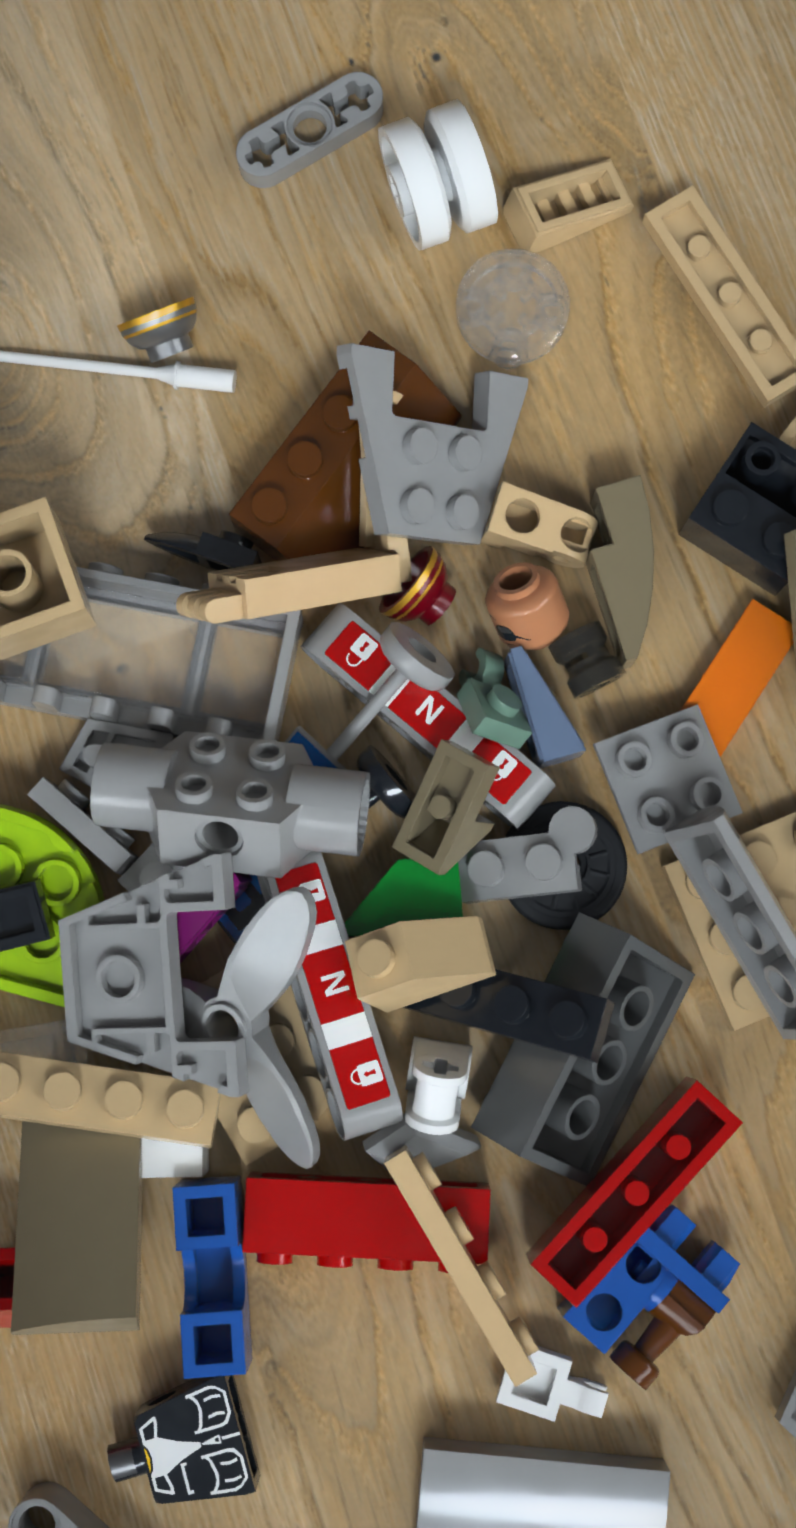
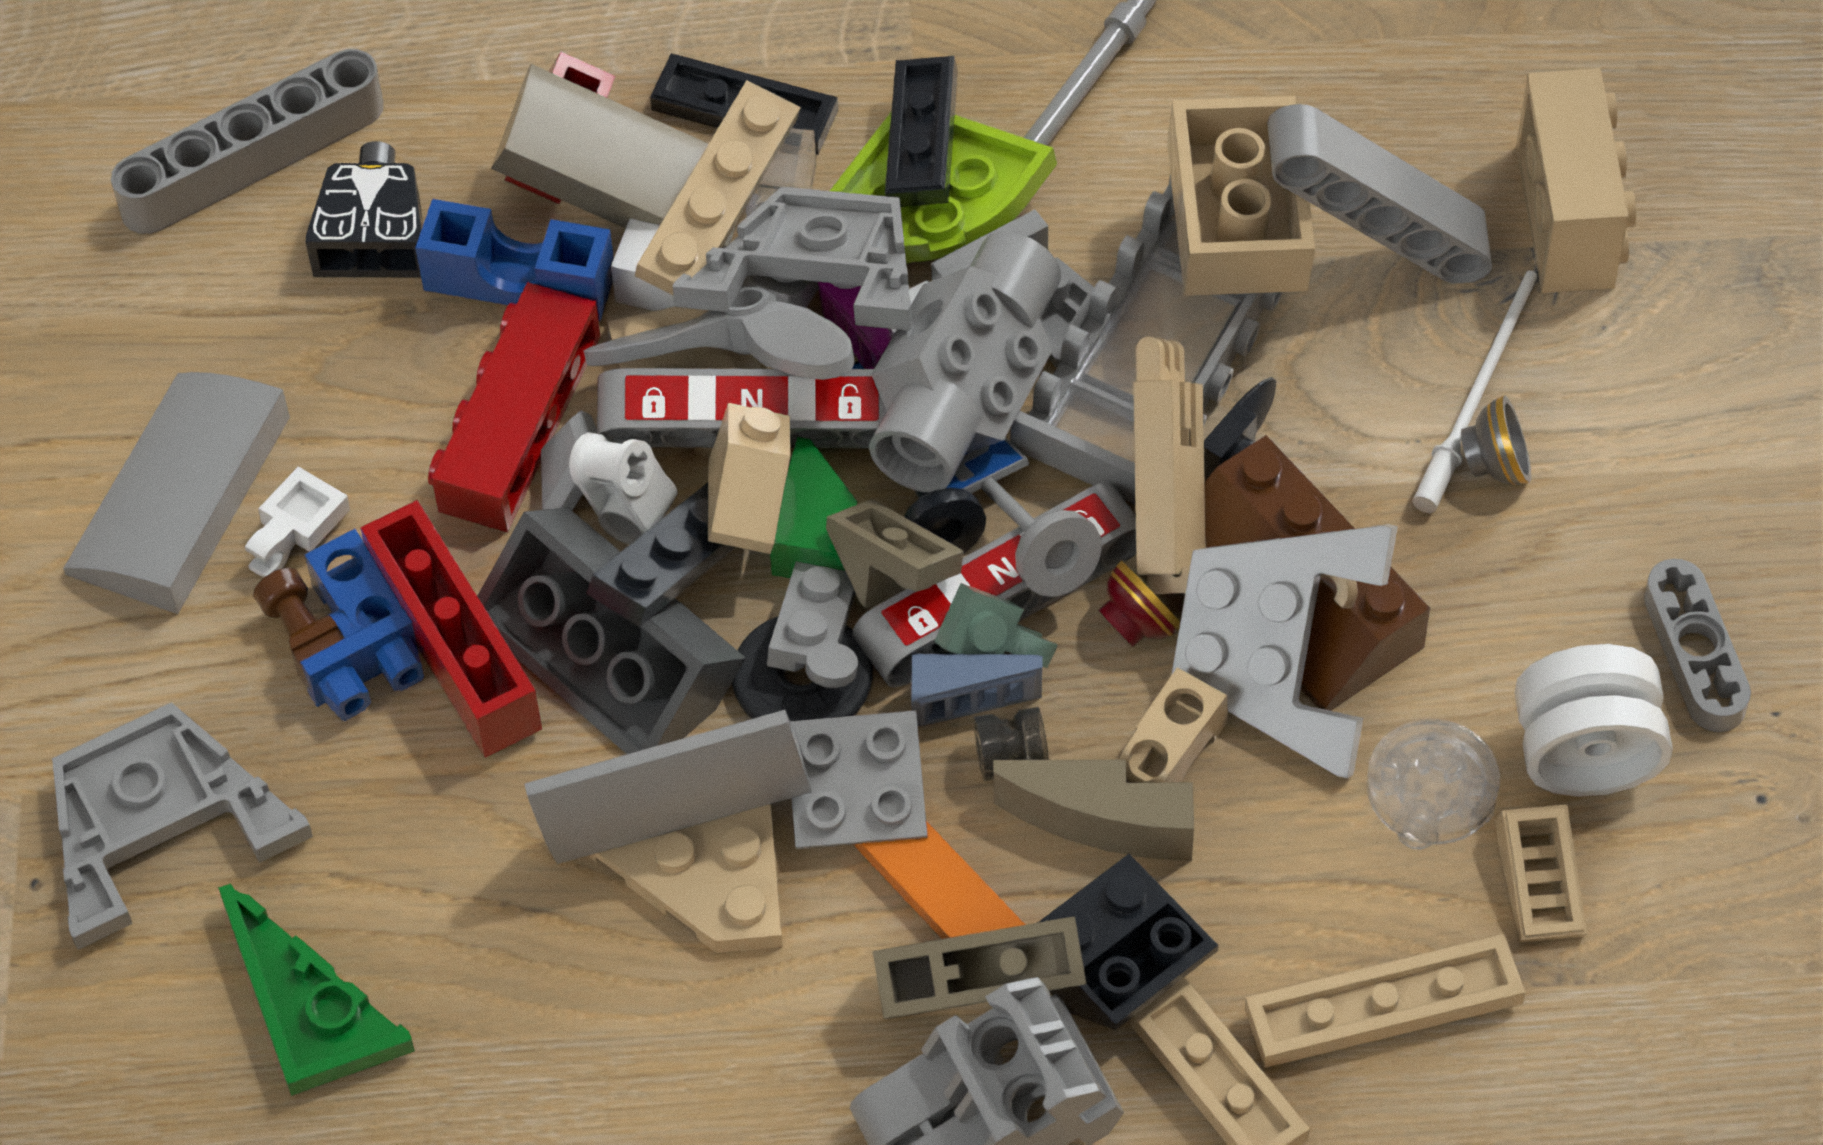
camera: 105 degrees right, 25 degrees down
(475, 1283) = (443, 438): tan plate -> none
(527, 606) = (1085, 694): nougat head -> none

